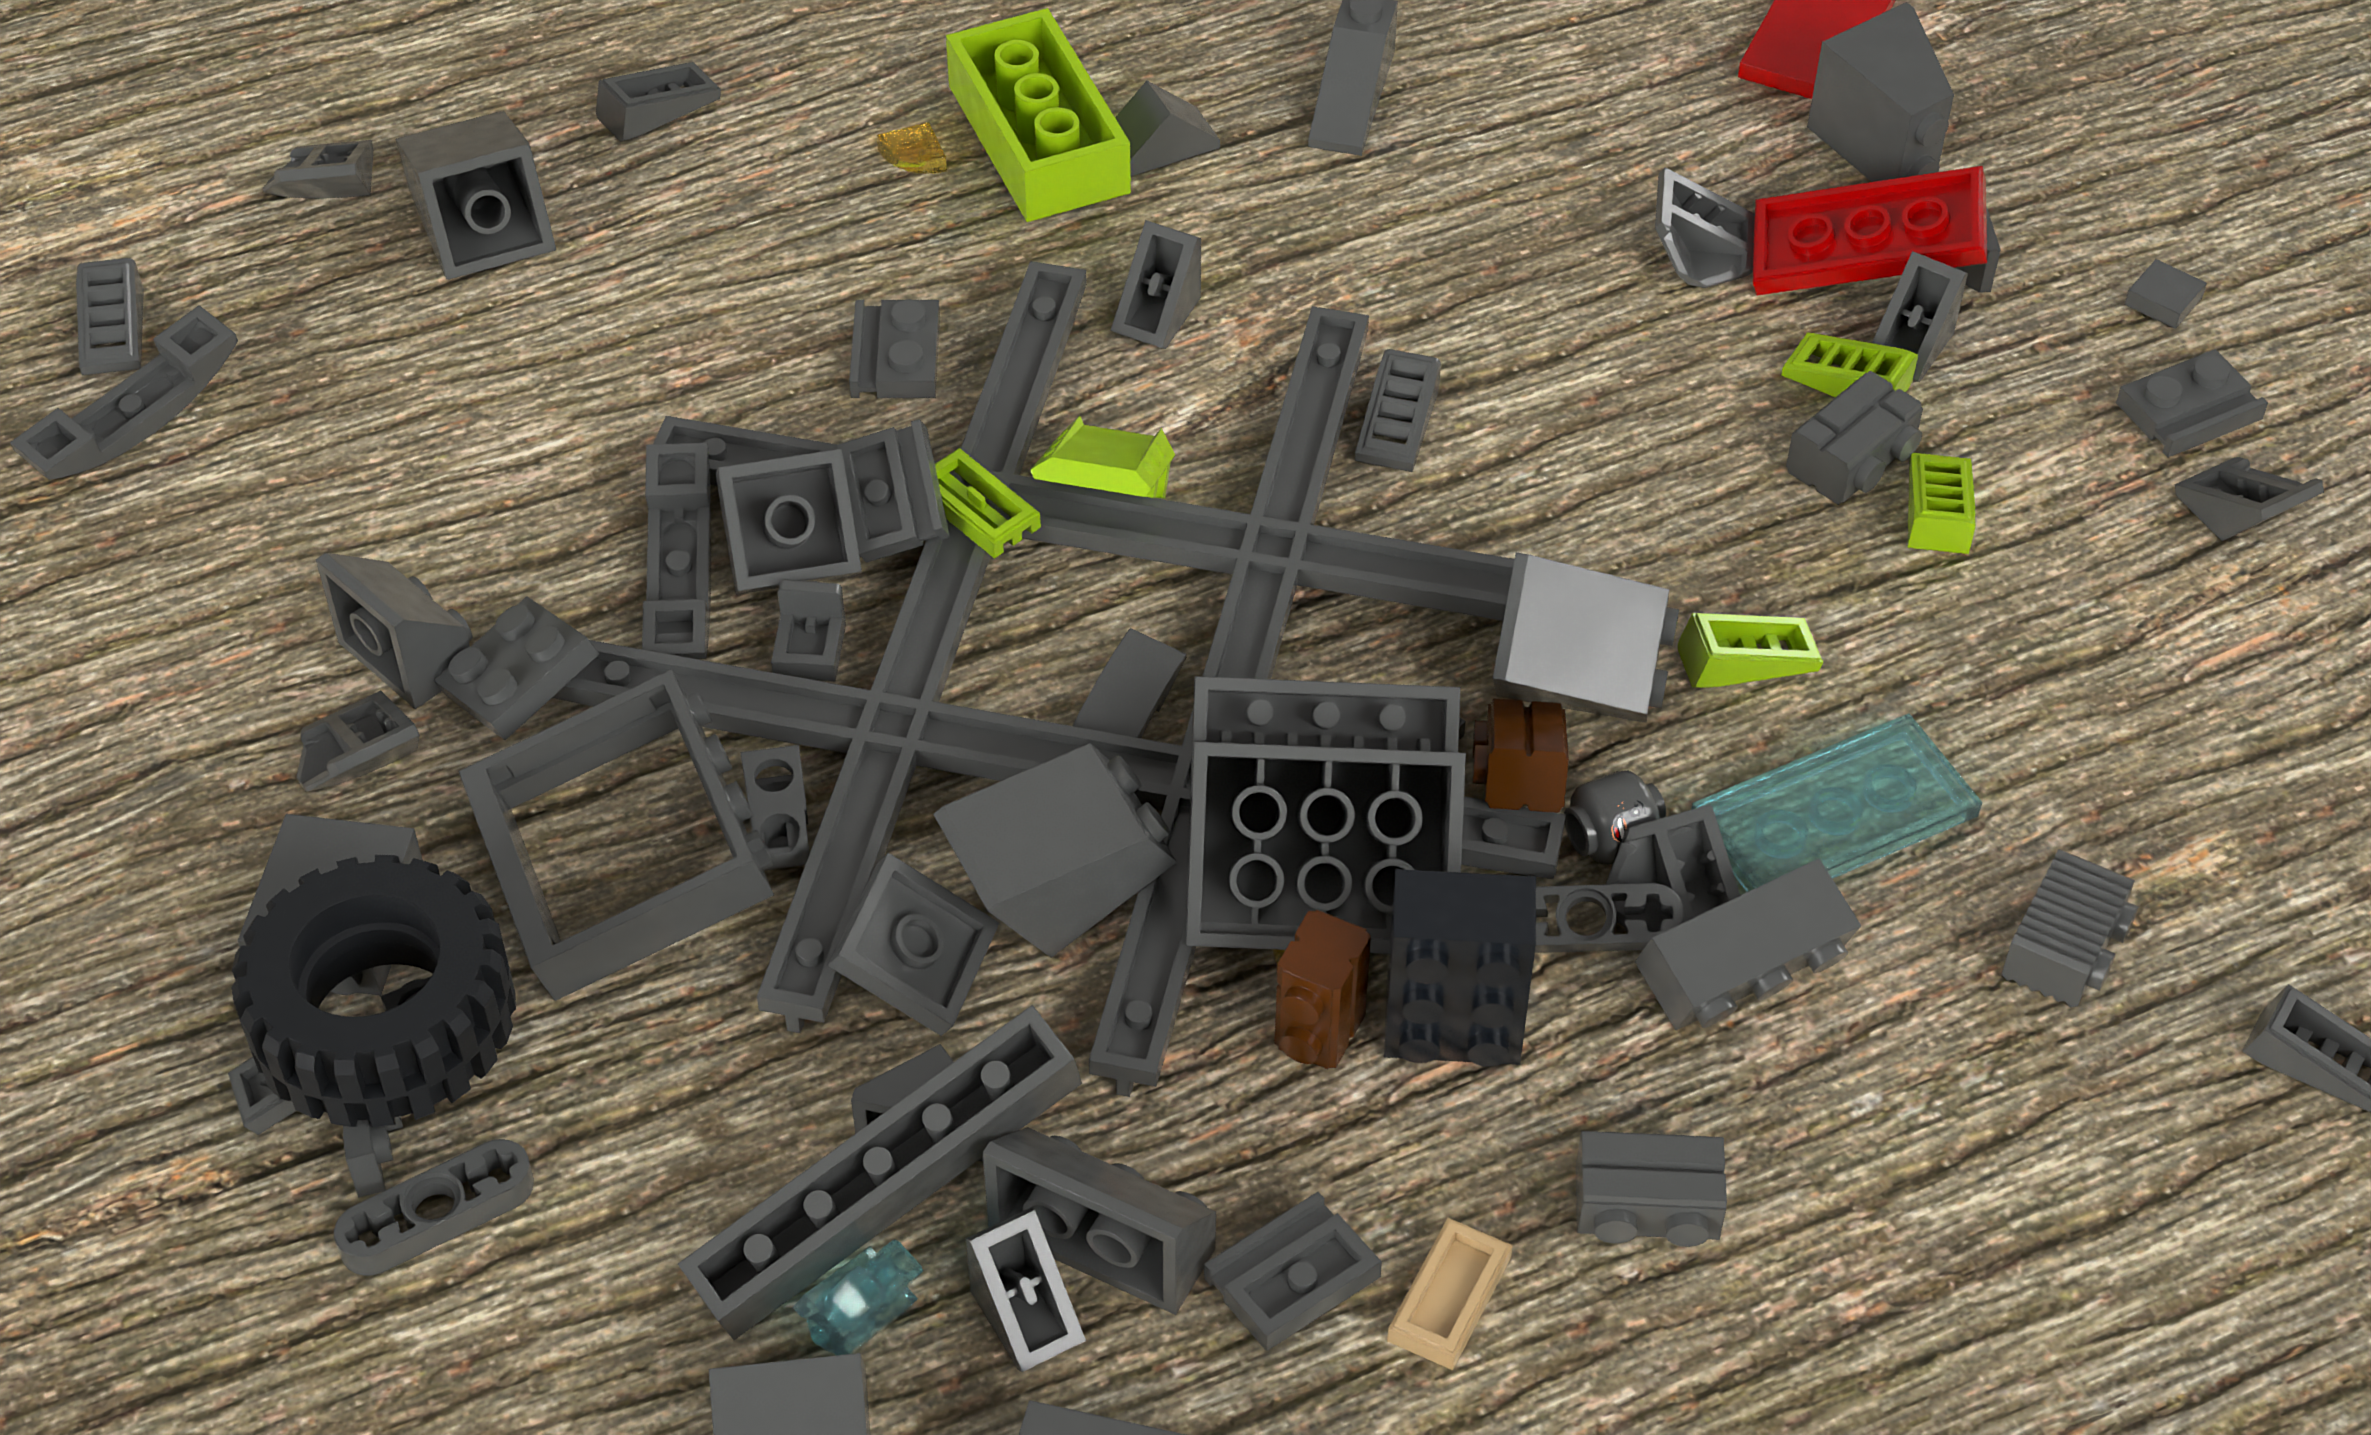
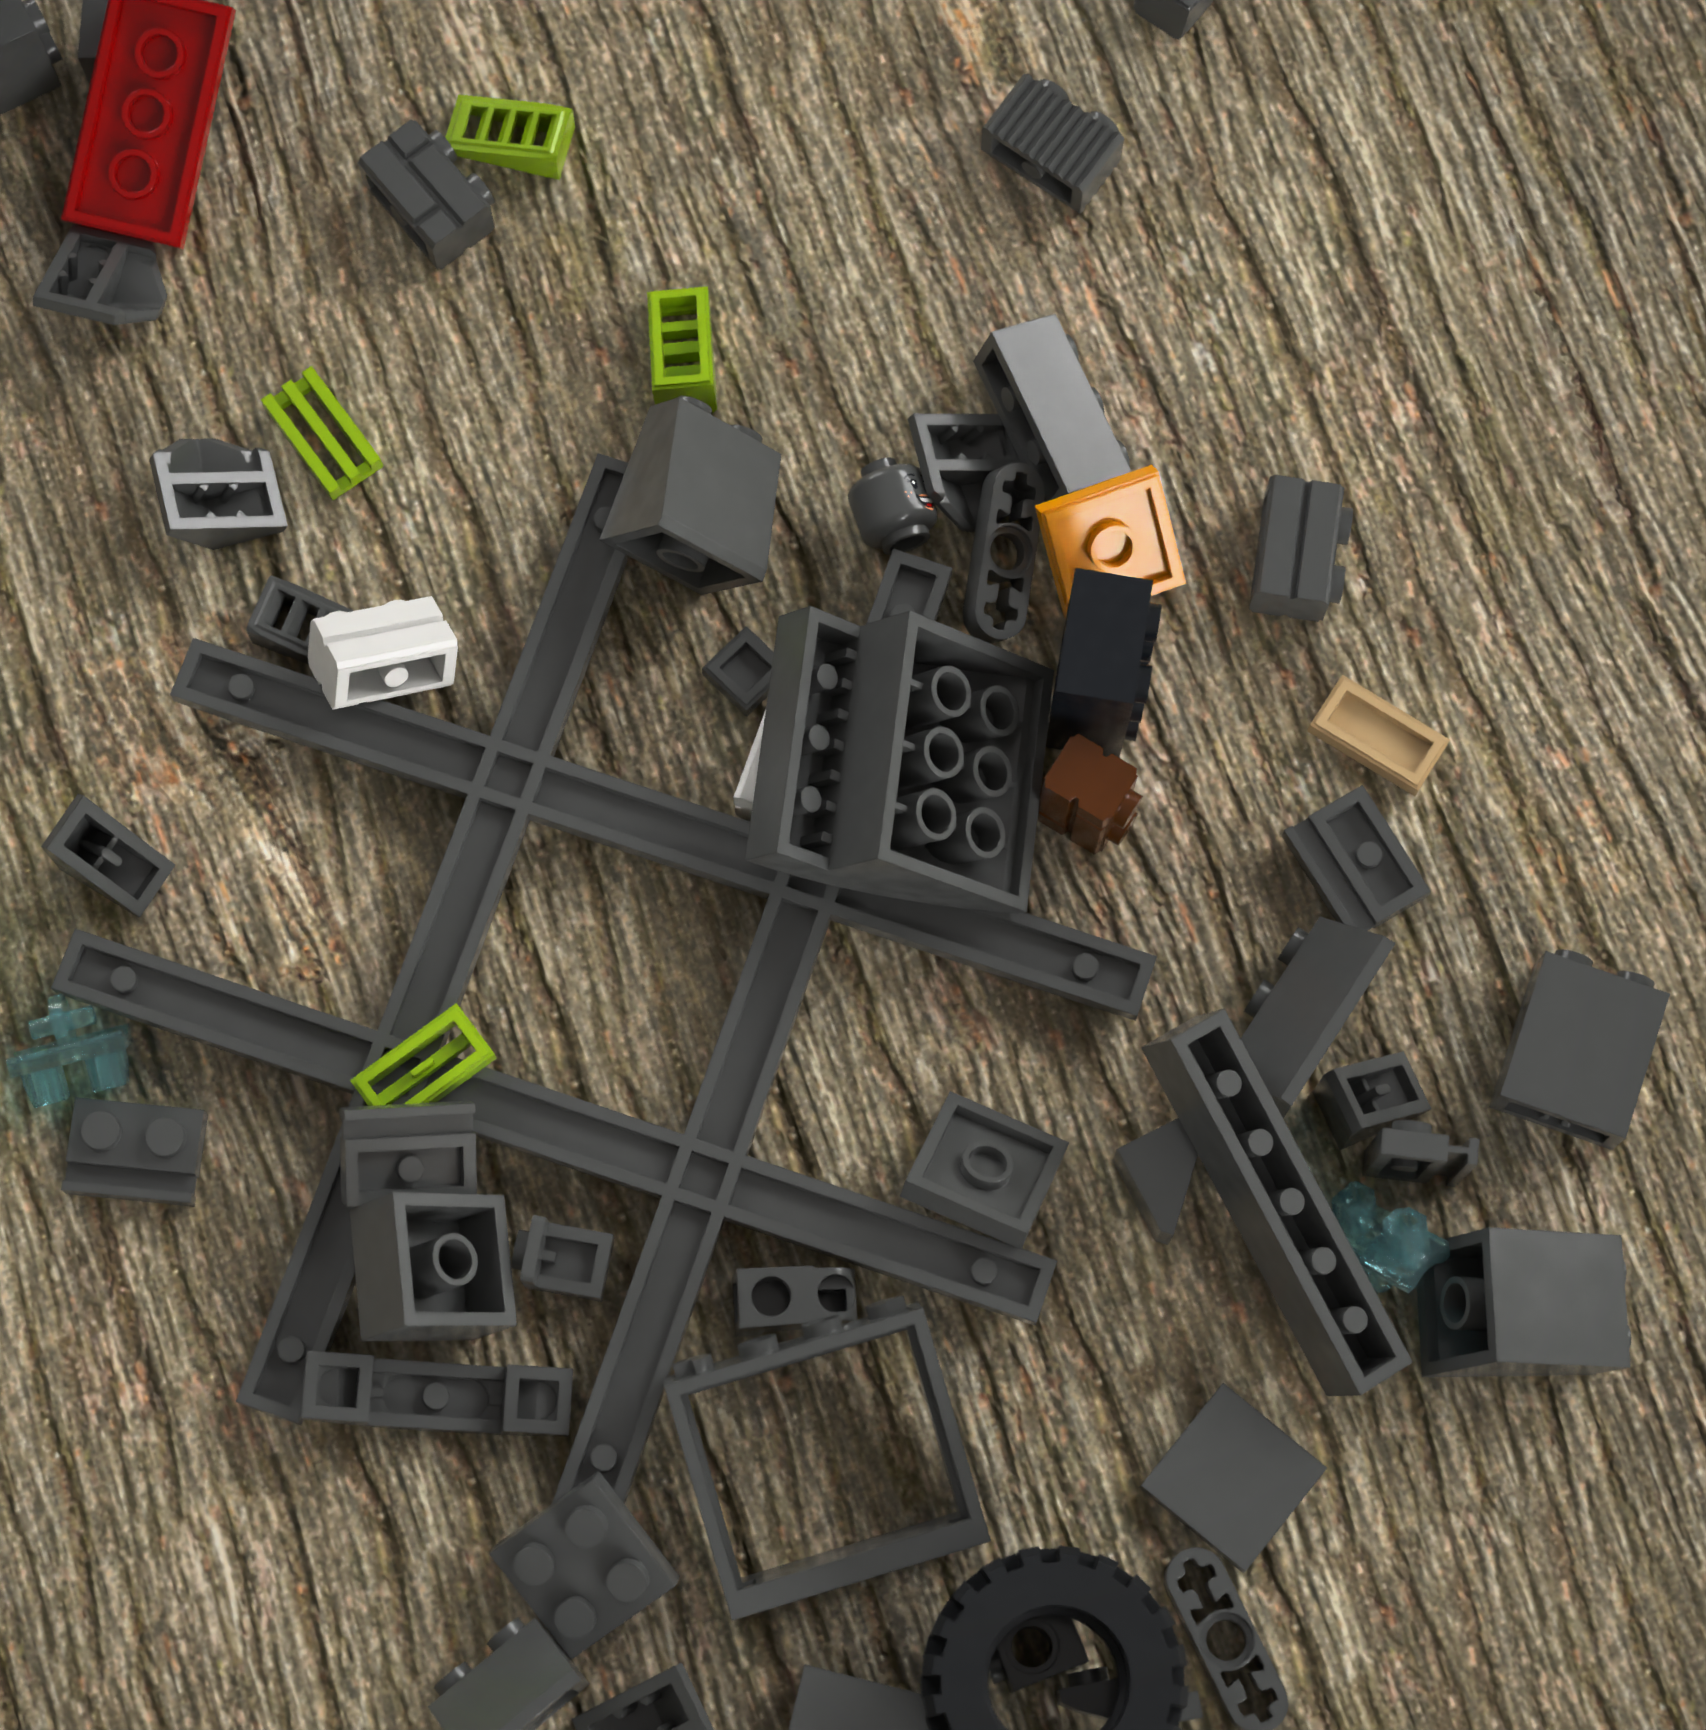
camera: 85 degrees left, 25 degrees up
(606, 1204) = (1233, 1477): none -> dark grey tile
(956, 1321) = (1416, 1154): none -> dark grey plate
(995, 279) = (43, 1065): none -> clear light blue hips
(1058, 845) = (905, 1017): dark grey slope -> none
(1108, 460) = (382, 933): lime slope -> none
(1131, 686) = (679, 939): dark grey slope -> none
(1376, 435) = (382, 652): none -> white brick
(1516, 323) = (217, 492): none -> dark grey slope
(1522, 755) = (828, 569): reddish brown brick -> none
(1587, 394) = (294, 394): none -> lime tile
(1612, 1001) = (1113, 530): none -> light orange tile
(1842, 805) = (885, 311): clear light blue tile -> none
(1855, 359) = (317, 148): lime slope -> none
(1923, 310) = (273, 99): dark grey slope -> none

